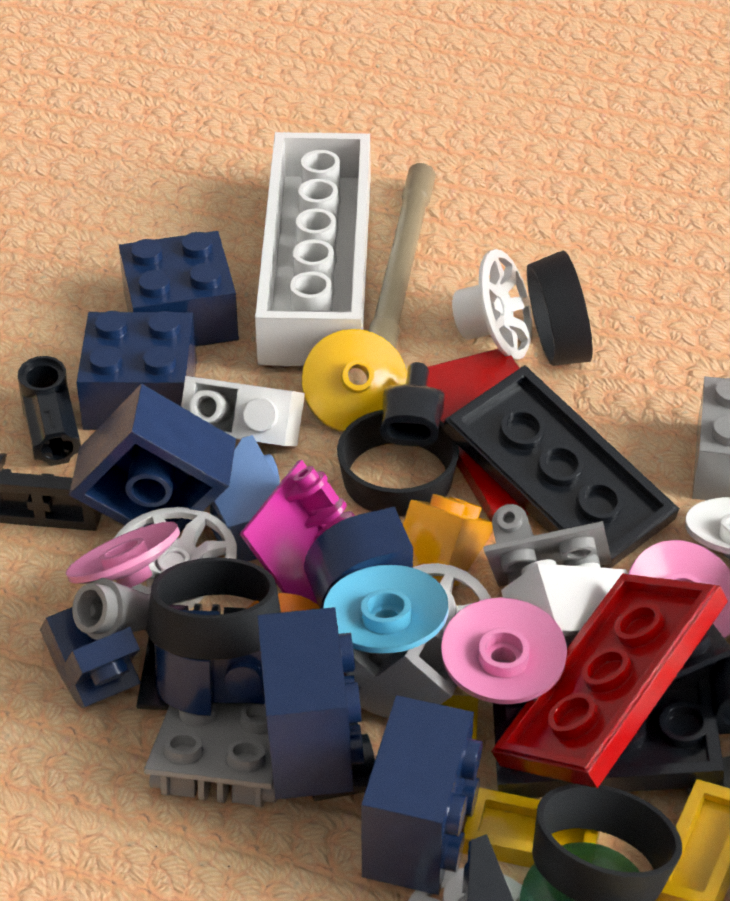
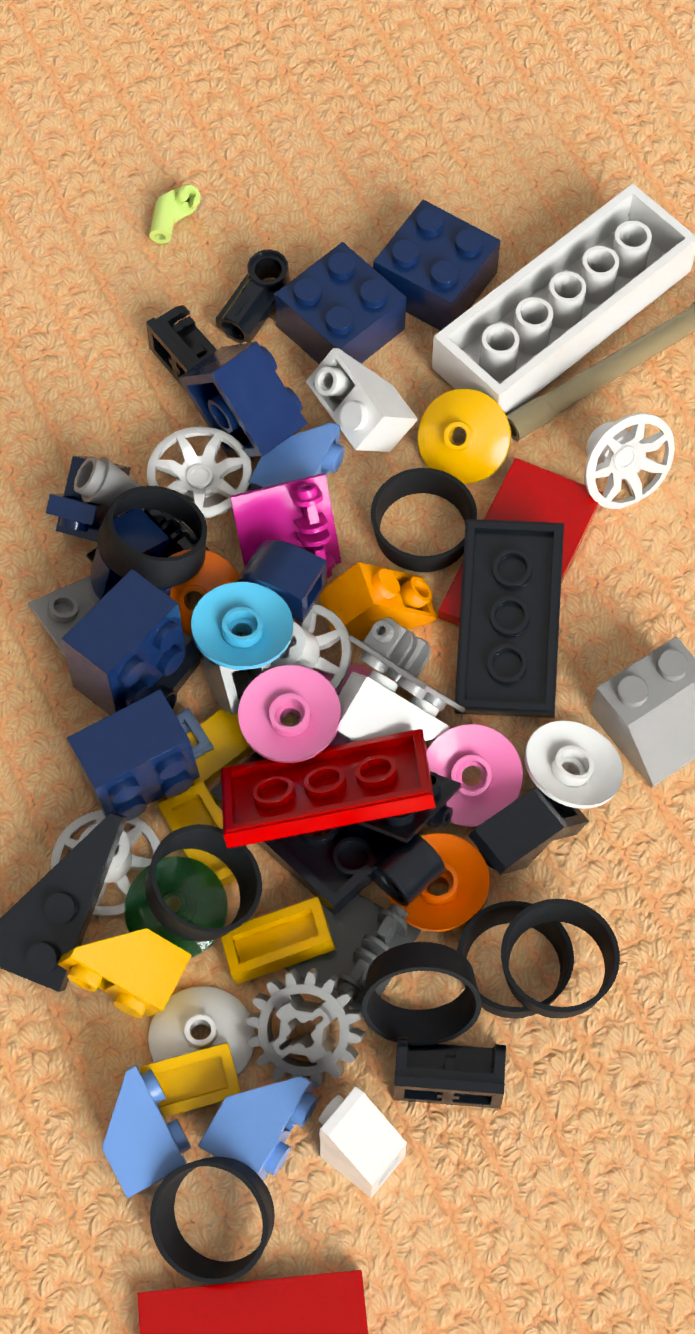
camera: 45 degrees right, 20 degrees up
(125, 556) = (150, 451): bright pink dish -> none
(412, 410) = (461, 491): black piece -> none
(559, 310) = (653, 497): black tyre -> none

